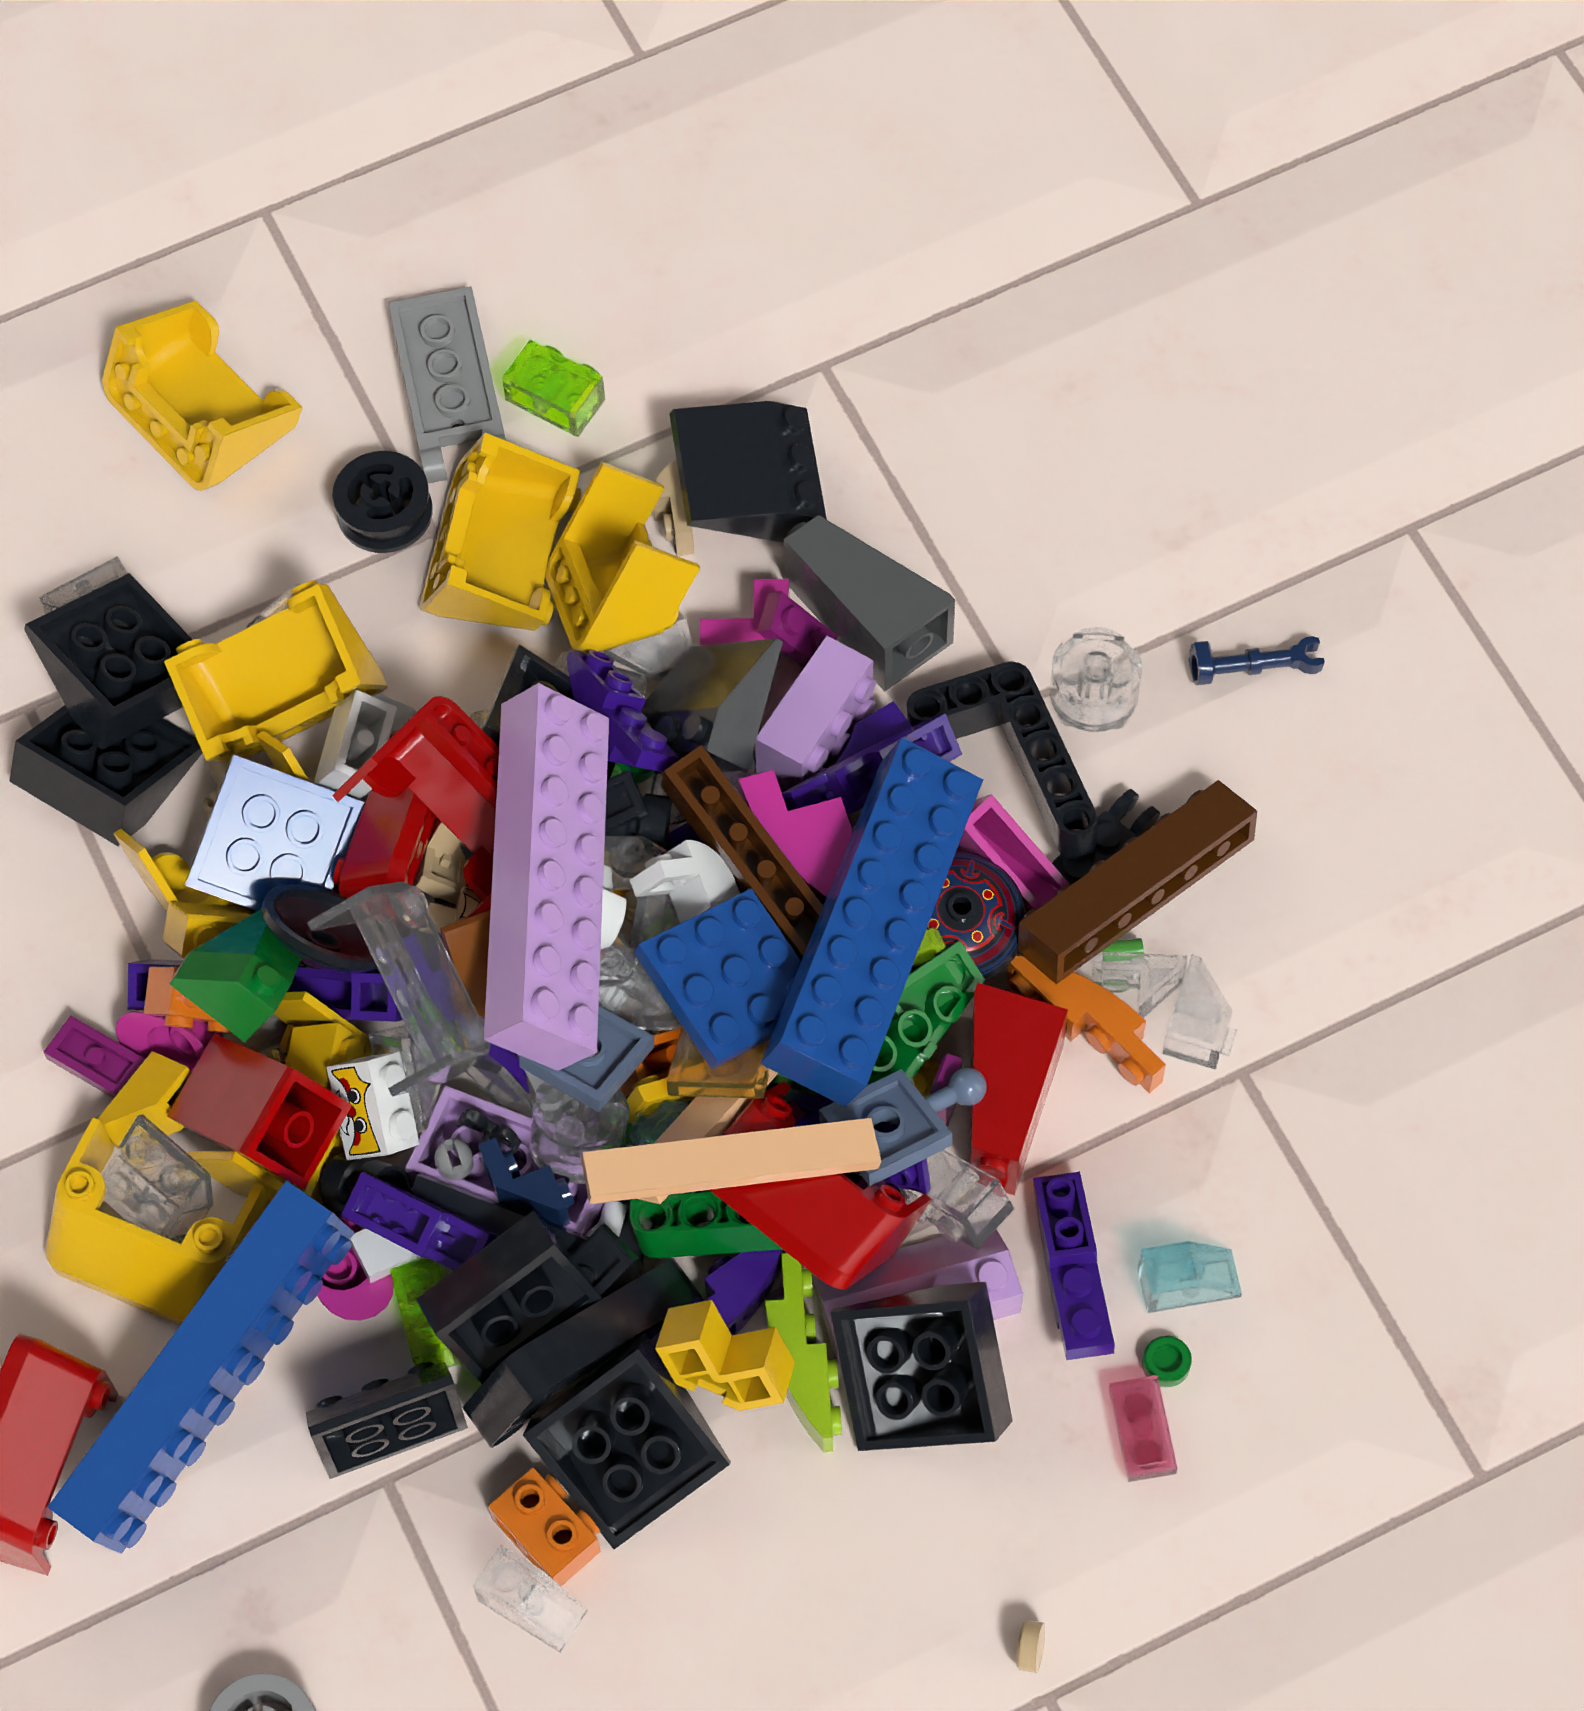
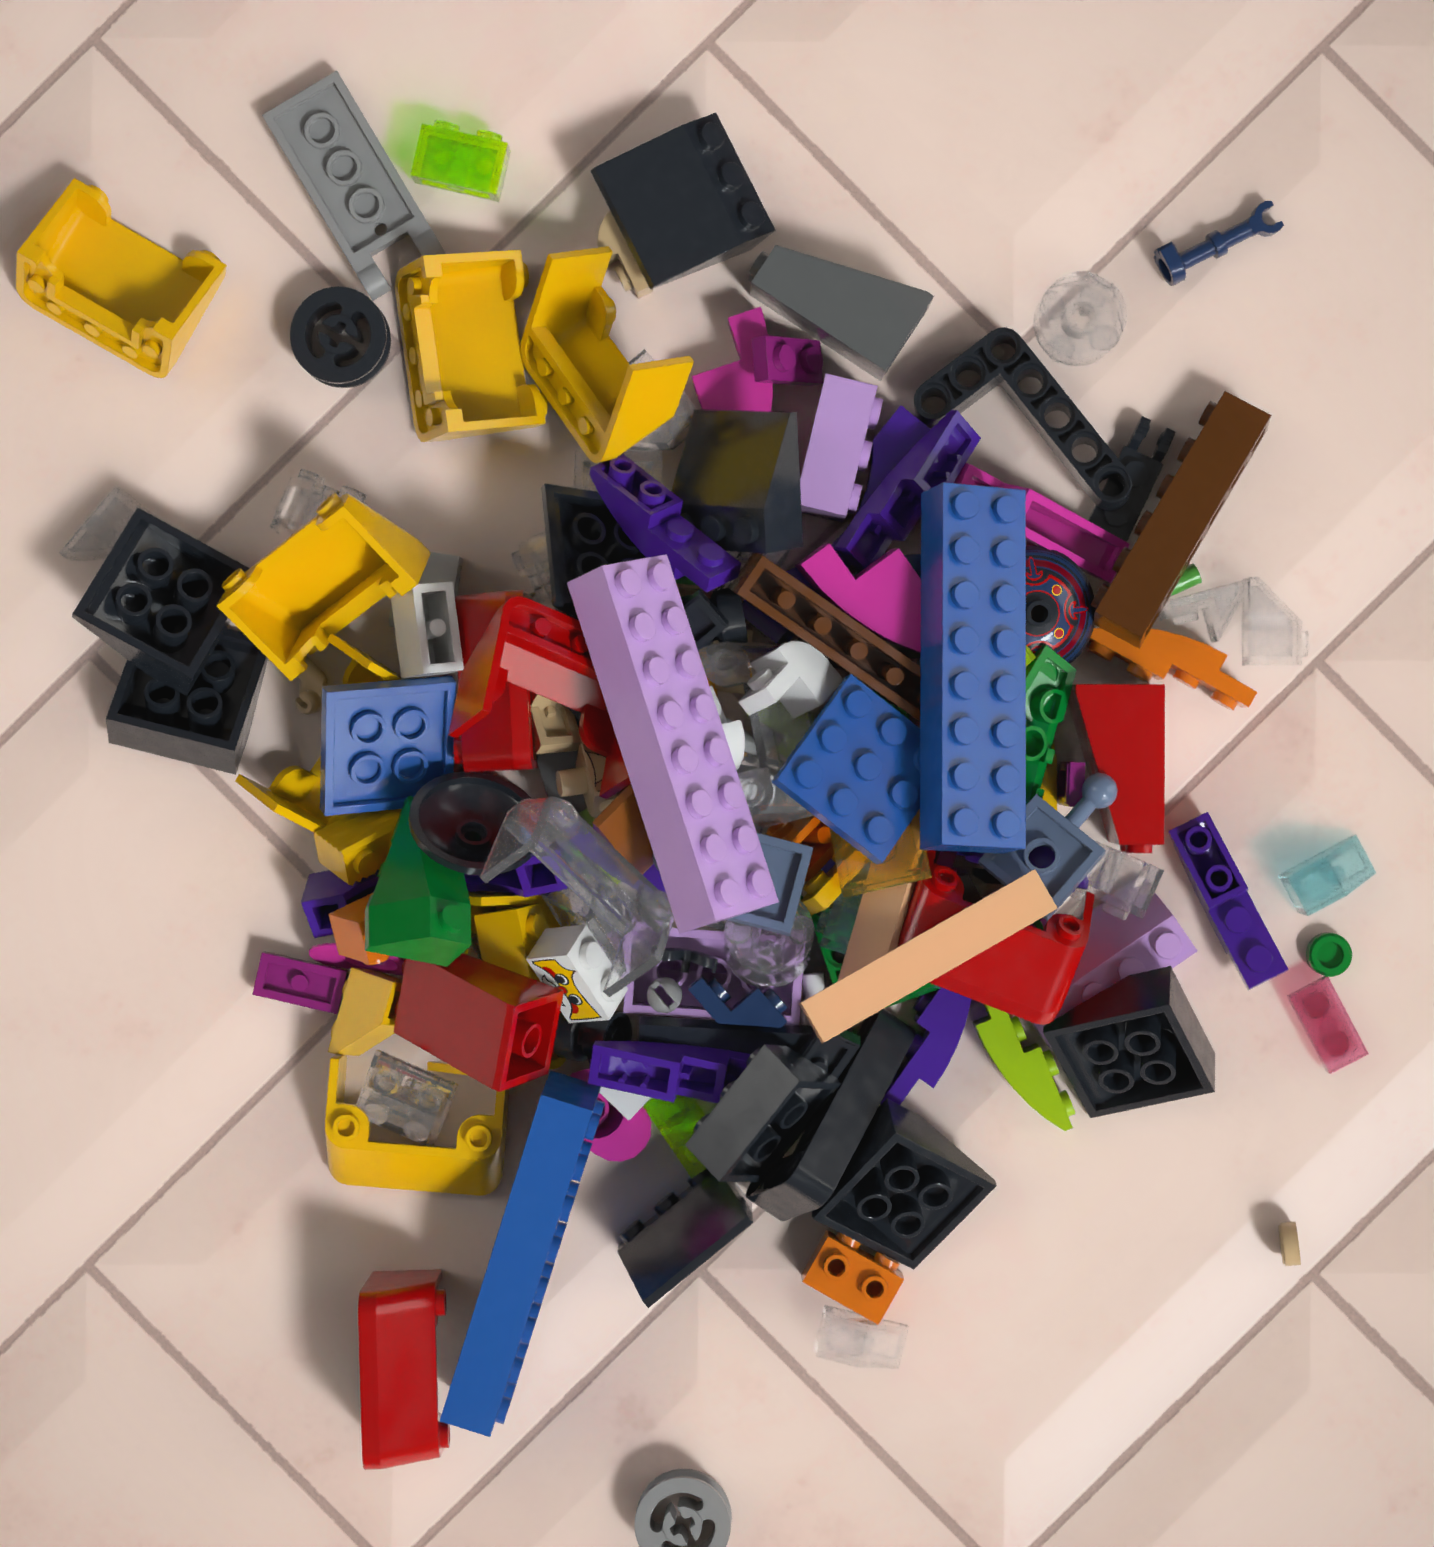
camera: 20 degrees left, 25 degrees up
(743, 1368) = (980, 1100): yellow brick -> none

